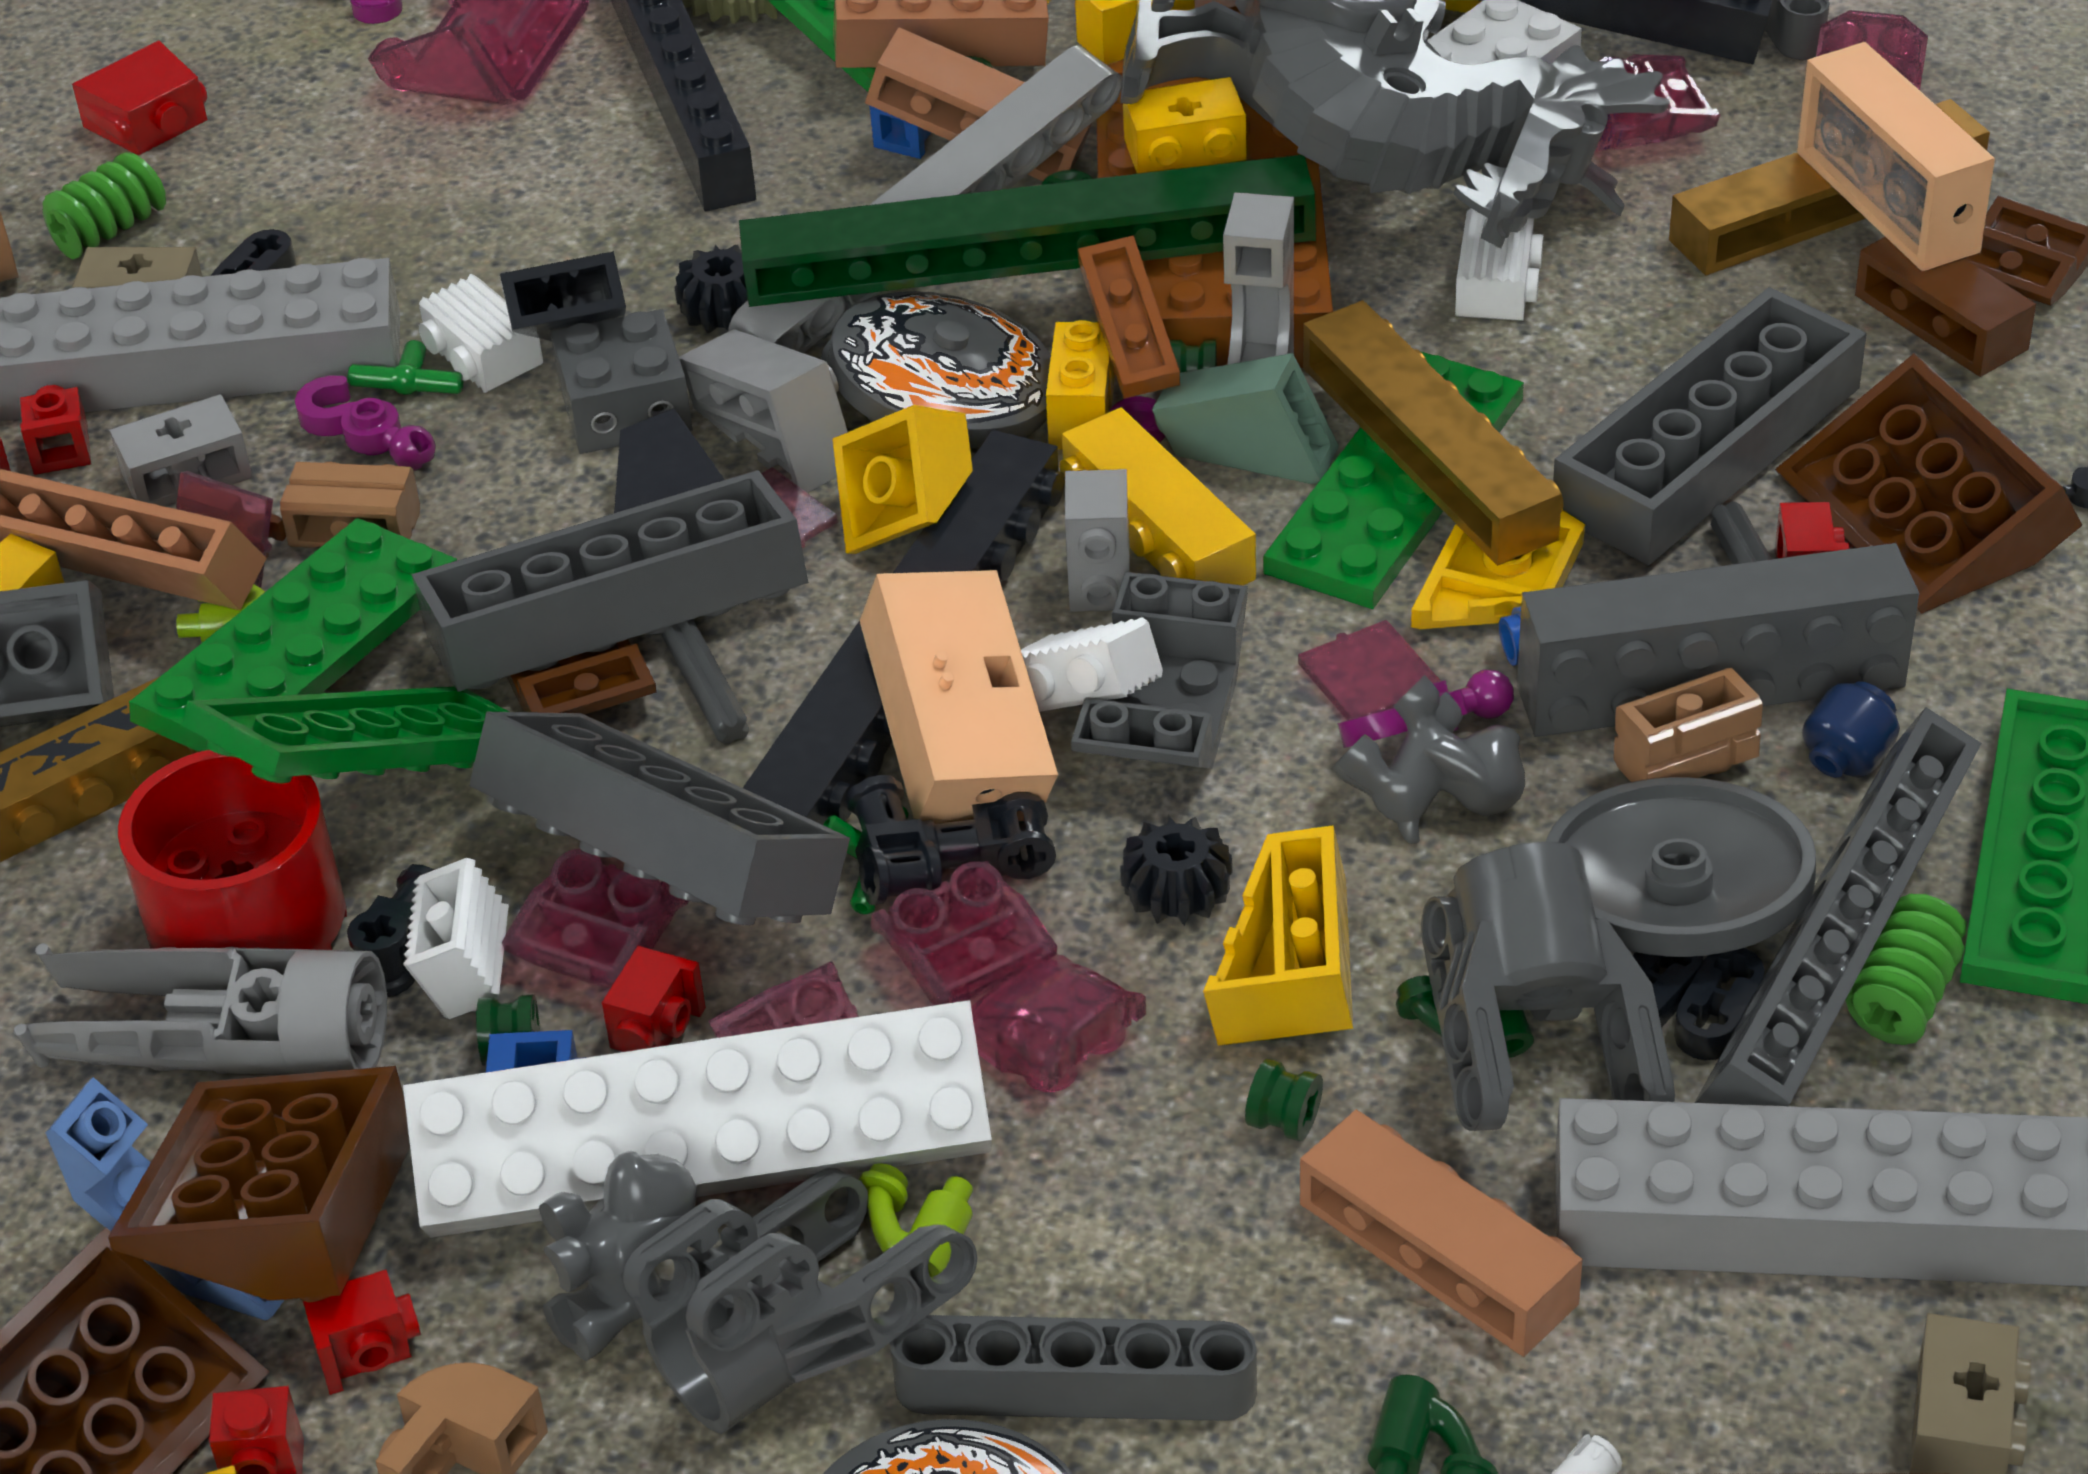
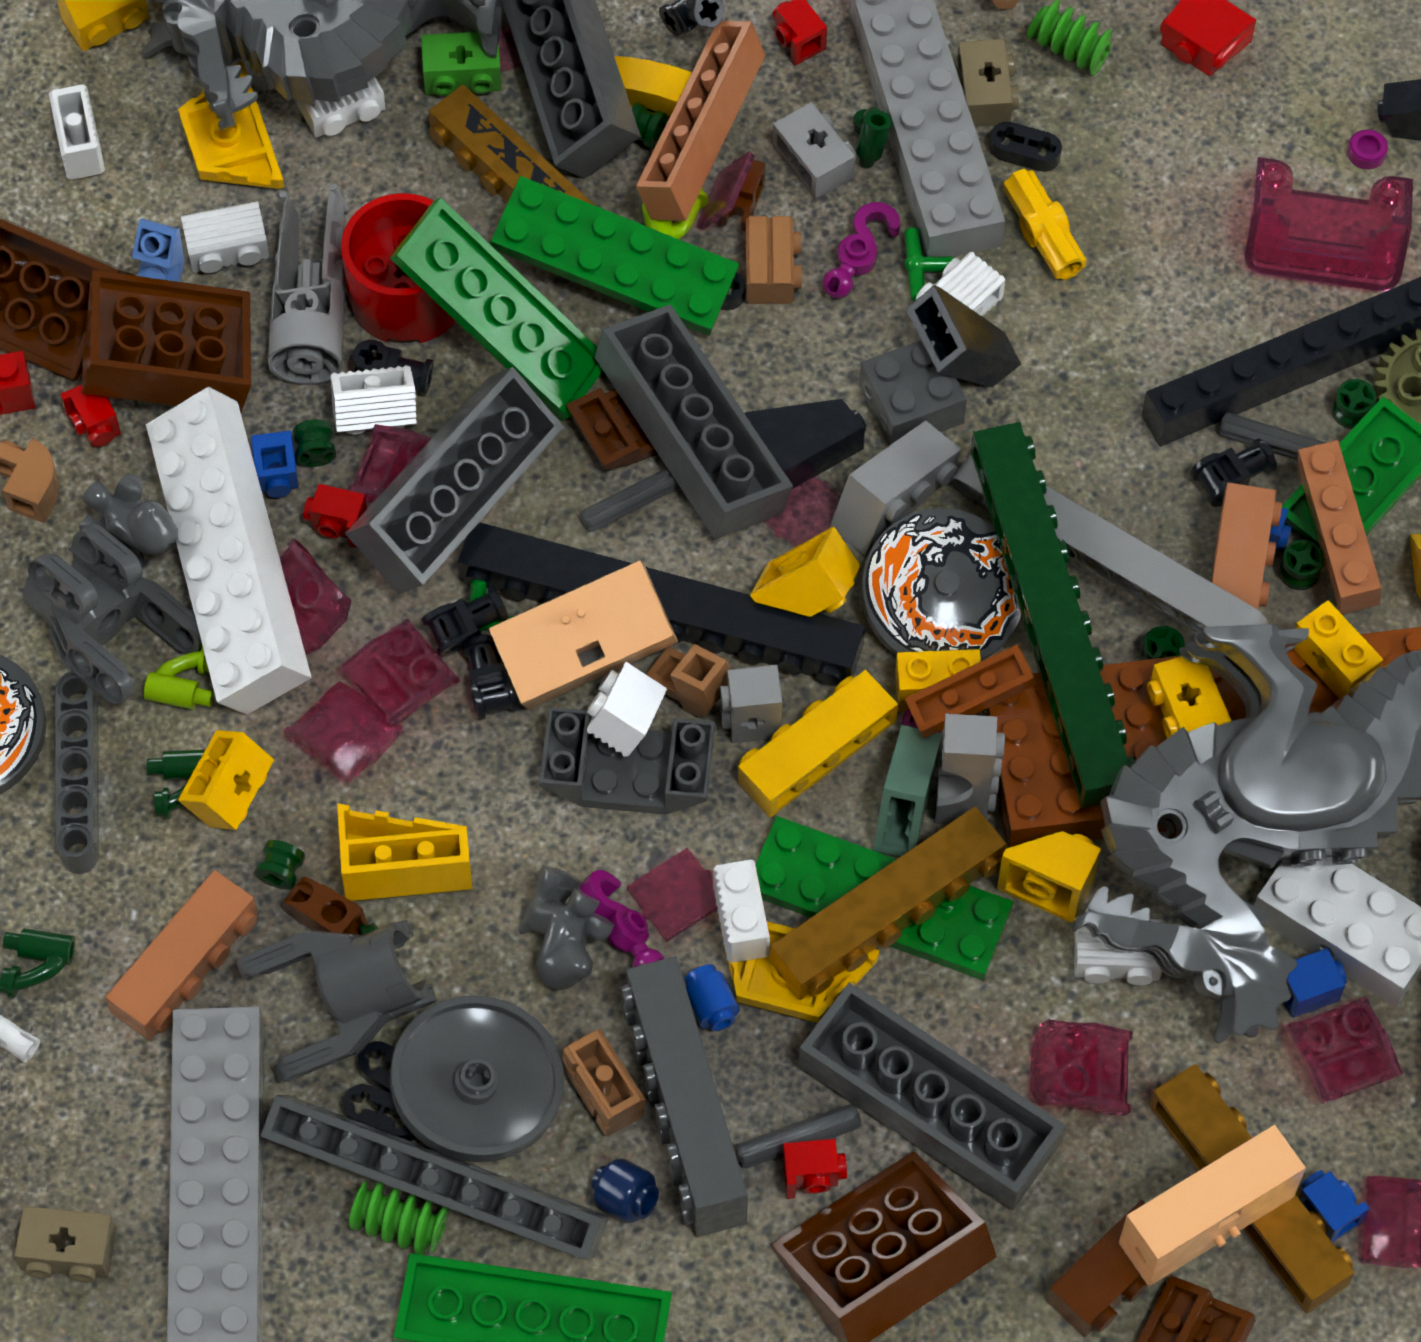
camera: 80 degrees right, 20 degrees up
(39, 1099) = (225, 237): none -> white brick
(50, 414) = (834, 72): red brick -> none
(192, 371) = (873, 129): none -> dark green plant
(412, 247) = (1044, 224): none -> yellow piece
(711, 287) = (1041, 429): black gear -> none
(748, 32) = (1348, 396): none -> dark green wheel
(782, 94) = (1277, 438): none -> dark grey axle
(820, 128) = (1229, 467): none -> black connector
(1050, 588) = (691, 677): none -> medium nougat brick
(1078, 1227) = (174, 766): none -> dark green plant
(1128, 1148) = (226, 780): none -> yellow brick
(1176, 870) = (467, 772): black gear -> none
(1376, 1045) = (323, 908): none -> reddish brown leg
(1404, 273) = (1051, 873): none -> yellow slope
(1432, 562) = (741, 911): none -> white brick
(1662, 310) = (1081, 1066): none -> clear pink slope

